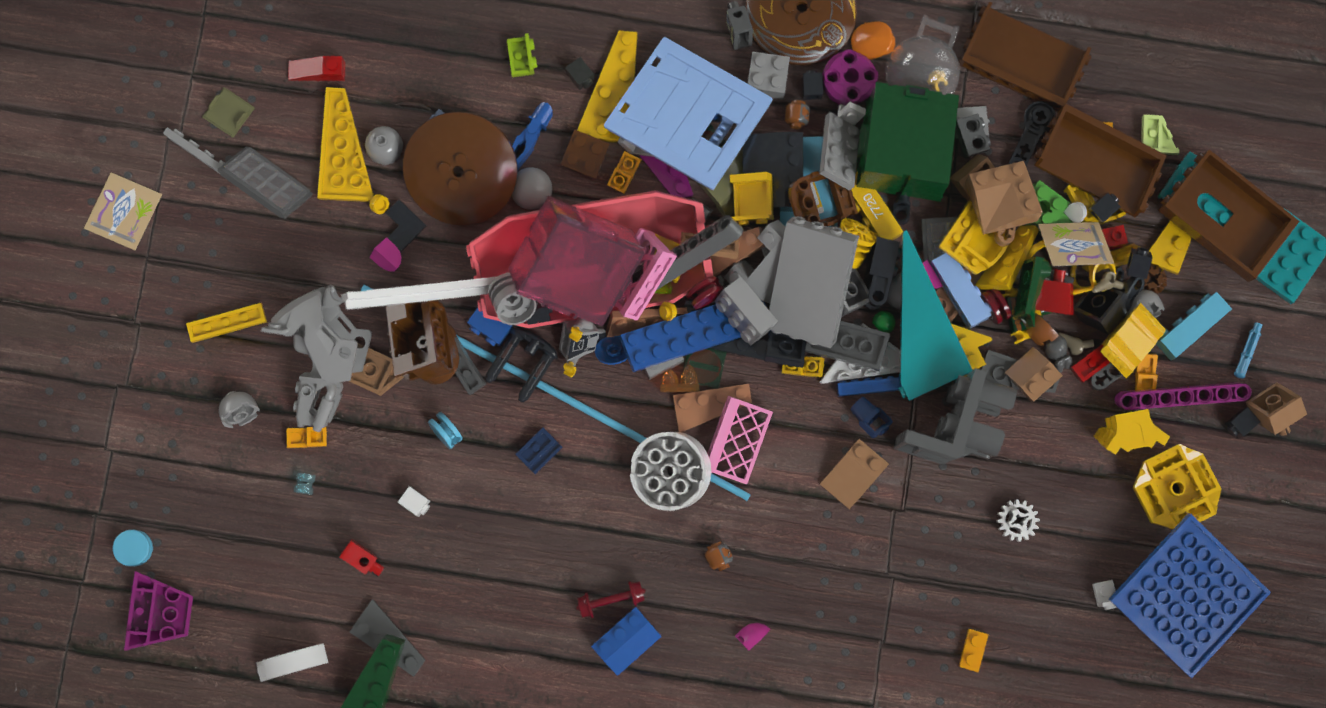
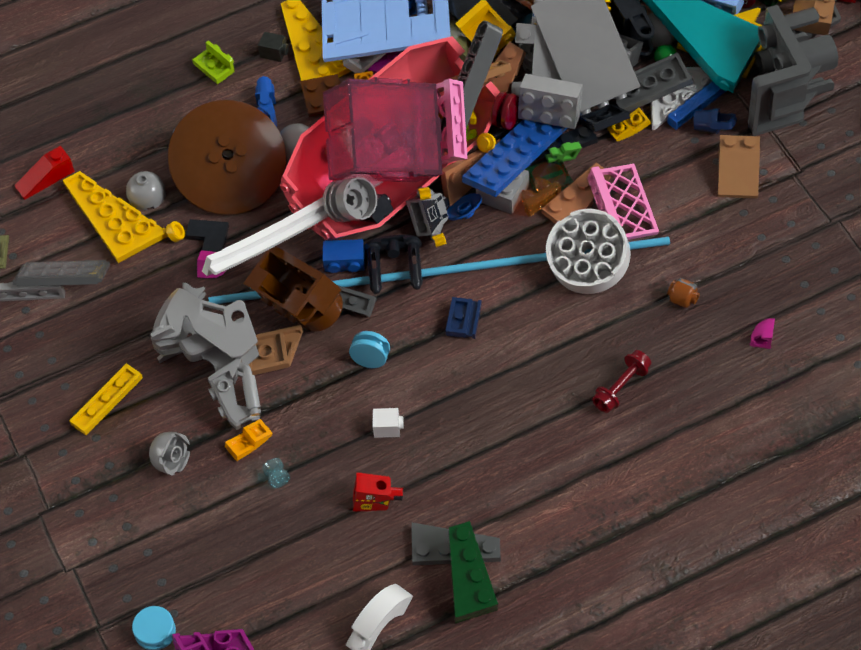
camera: 25 degrees left, 25 degrees down
(626, 641) = (662, 404): blue slope -> none
(731, 357) = (566, 152): none -> bright green plate

